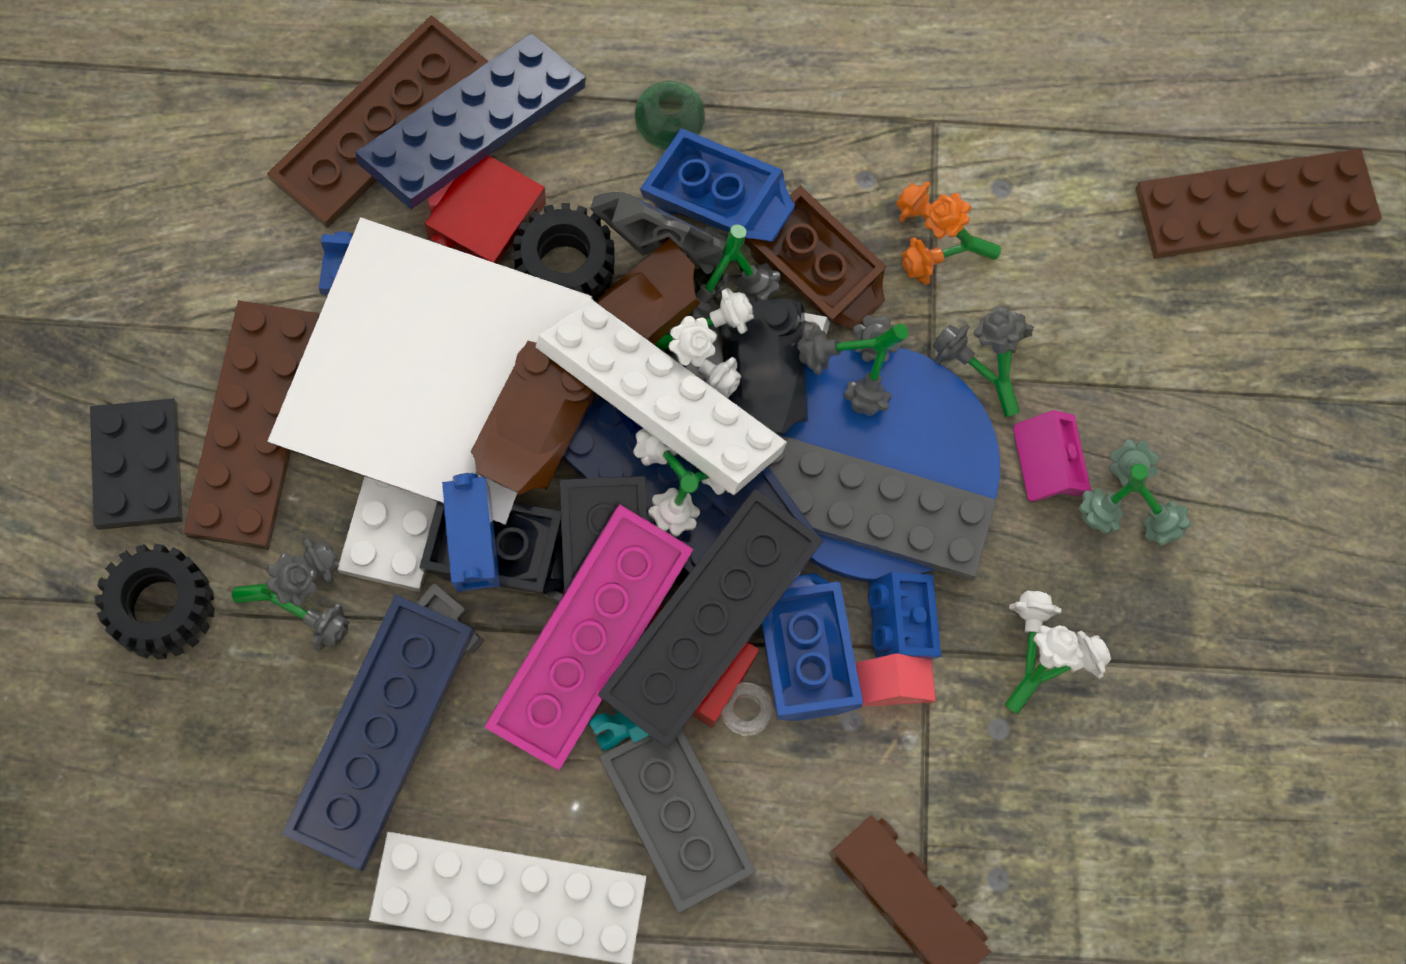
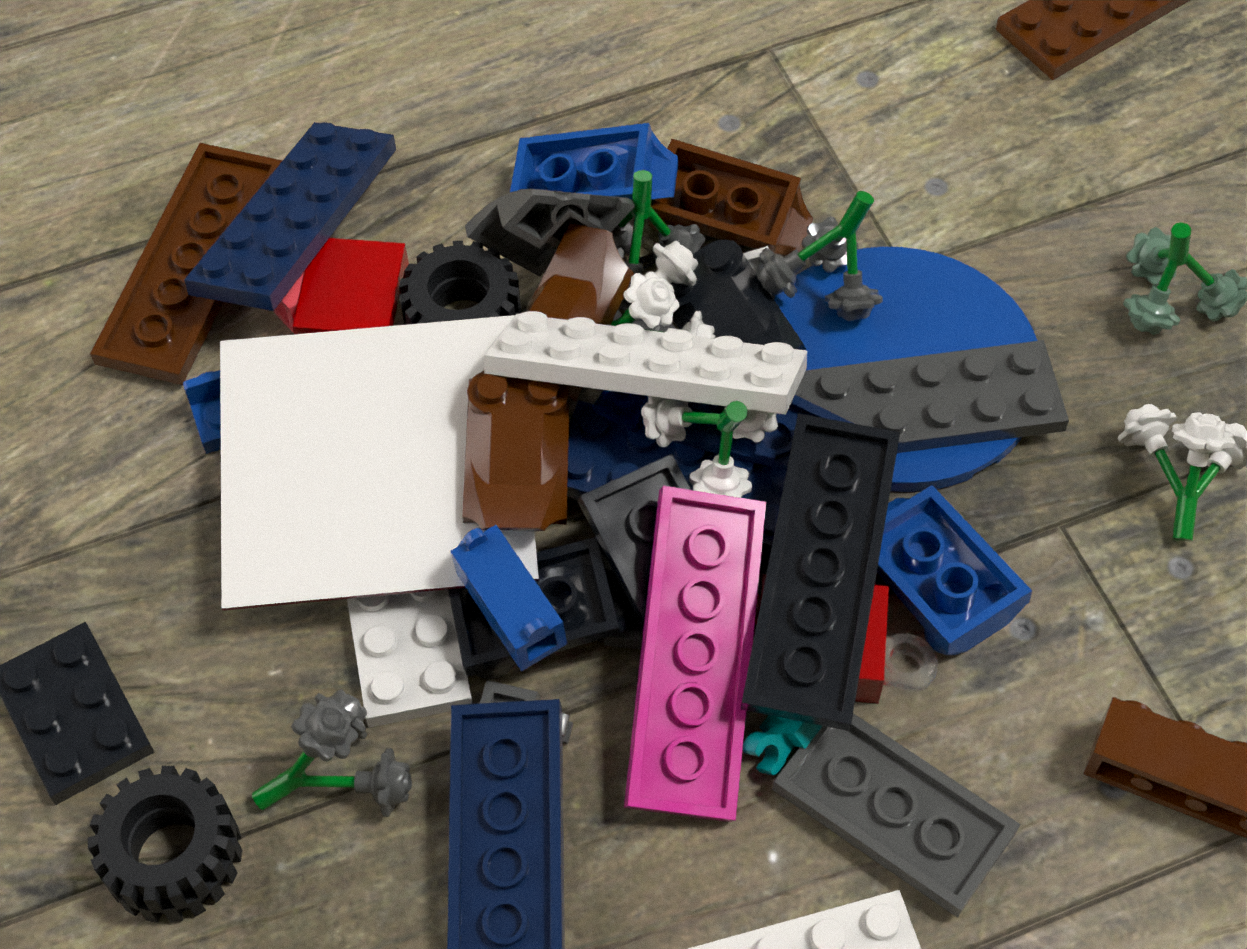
camera: 15 degrees left, 15 degrees down
(238, 469) = (194, 653): reddish brown plate -> none
(660, 127) = (493, 152): clear green piece -> none
(896, 680) = (1049, 561): coral slope -> none
(904, 615) = (1016, 497): blue bracket -> none
(943, 217) = (838, 99): orange plant -> none
(996, 329) = (953, 182): dark grey plant -> none
(1051, 456) = (1067, 285): dark pink panel -> none

